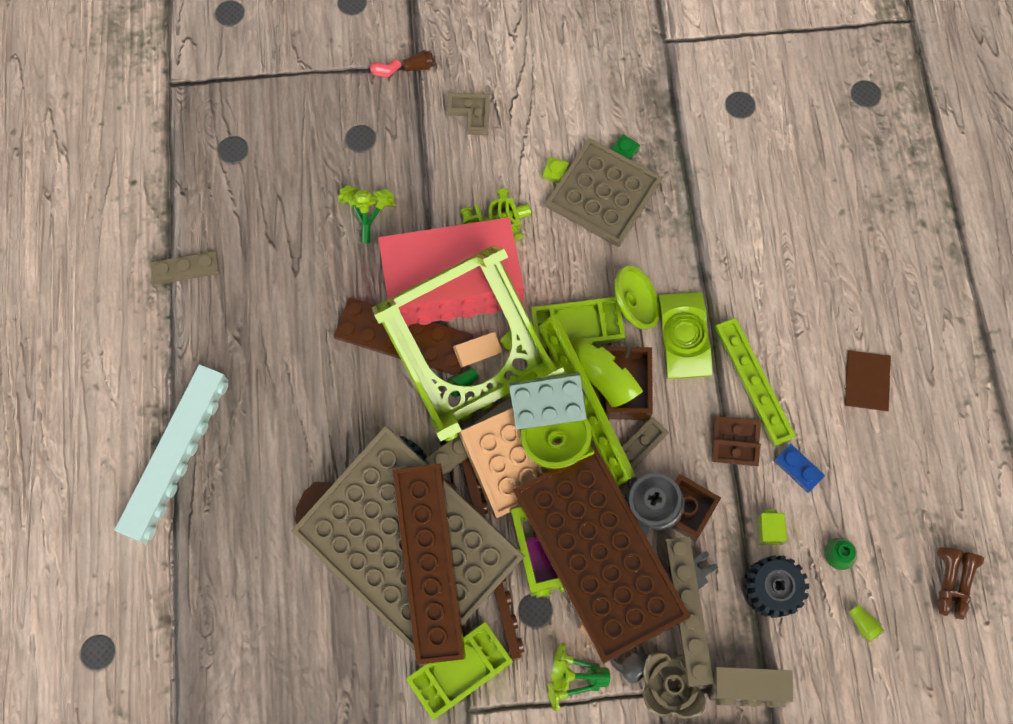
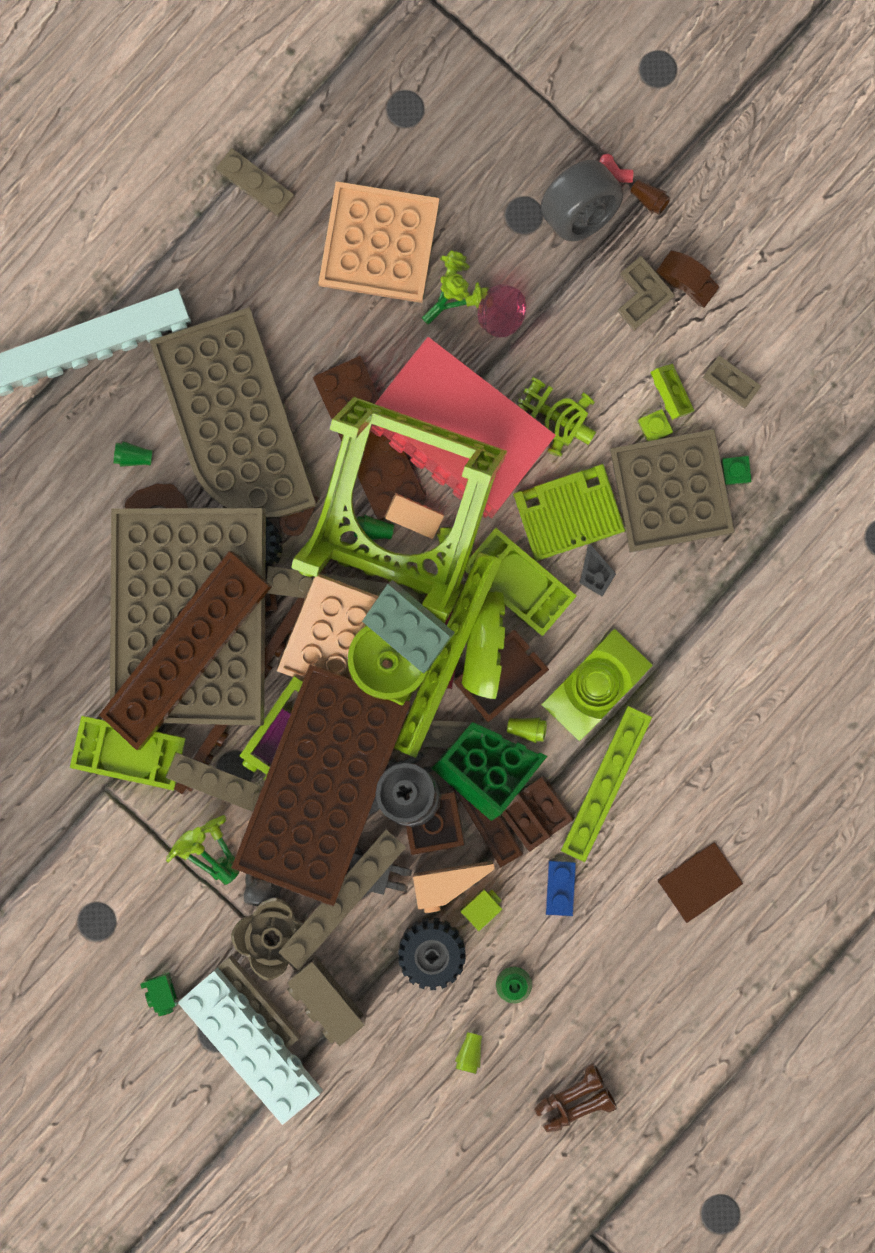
camera: 45 degrees right, 15 degrees up
(269, 490) = (131, 455): none -> green cone
(293, 228) = (378, 242): none -> light nougat plate
(308, 403) = (233, 416): none -> dark tan plate
(384, 92) = (581, 200): none -> dark grey wheel
(404, 192) = (502, 310): none -> clear pink tile
(410, 426) = (296, 523): none -> reddish brown plate
(485, 75) = (688, 275): none -> reddish brown brick
(533, 626) = (214, 781): none -> dark tan plate
(540, 141) = (672, 391): none -> lime plate
(562, 259) = (569, 513): none -> lime window
(570, 107) = (731, 381): none -> dark tan plate
(608, 273) = (596, 572): none -> dark grey piece
(636, 297) = (587, 615): lime dish -> none
(677, 397) = (528, 728): none -> lime cone
(682, 442) = (487, 768): none -> green wedge
(710, 474) = (494, 834): none -> reddish brown tile
(737, 536) = (442, 885): none -> light nougat slope

